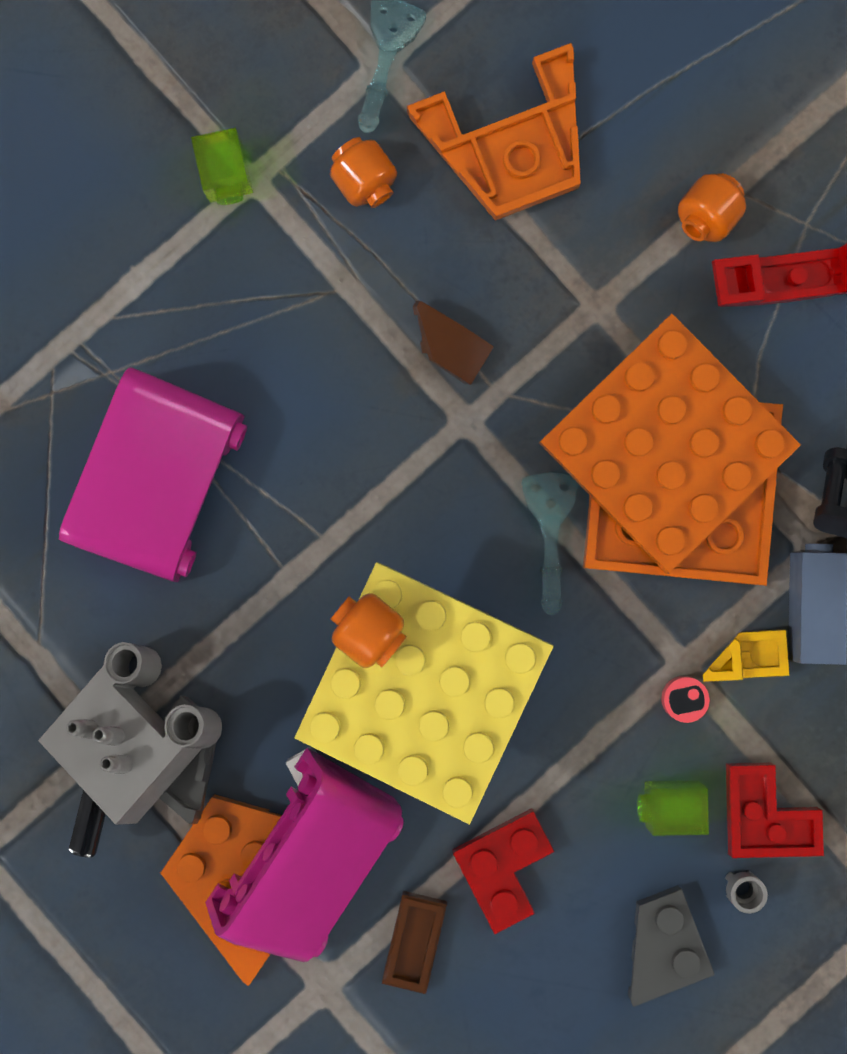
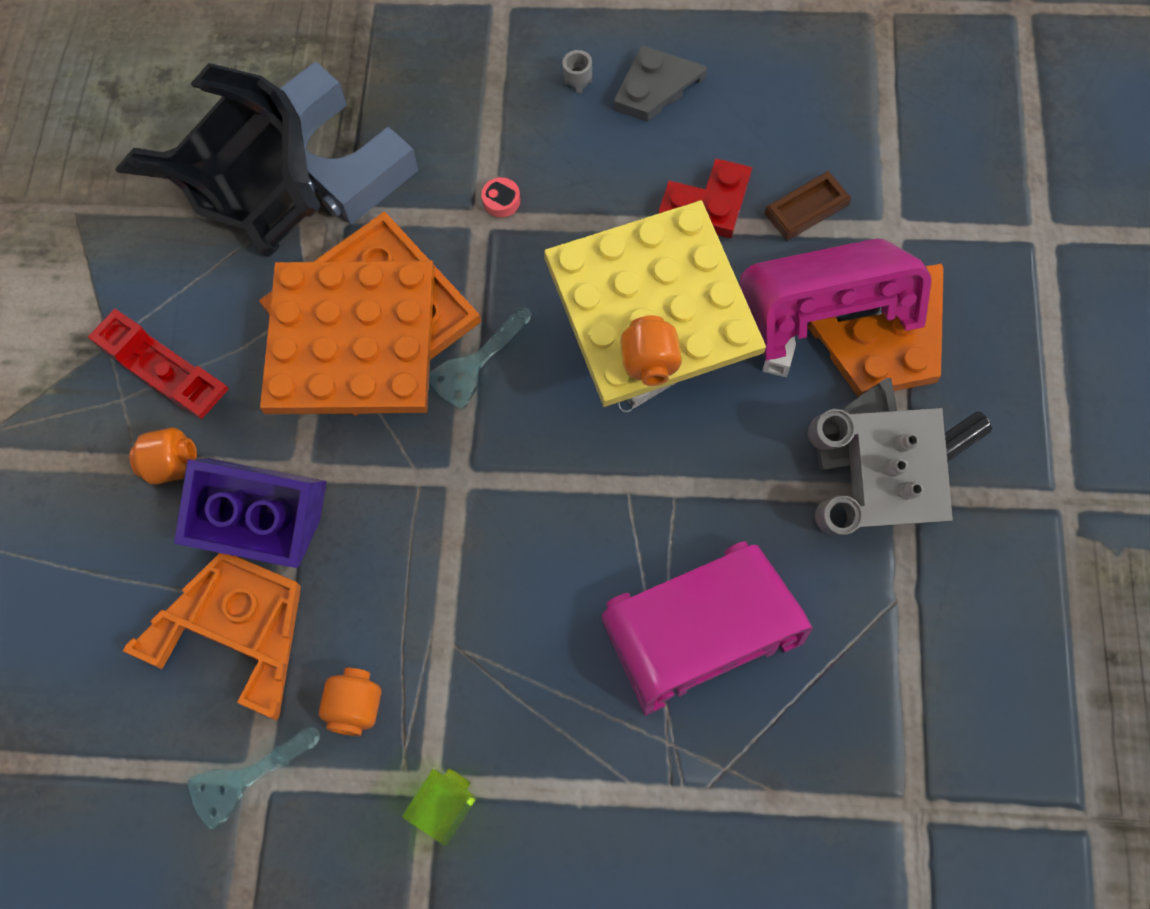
camera: 130 degrees left, 20 degrees down
(451, 344) = (416, 531): reddish brown slope -> none
(592, 231) = (249, 511): none -> dark purple slope
(674, 808) = (570, 142): clear neon green brick -> none
(751, 655) = (436, 187): yellow slope -> none
(756, 823) = (529, 100): red plate -> none

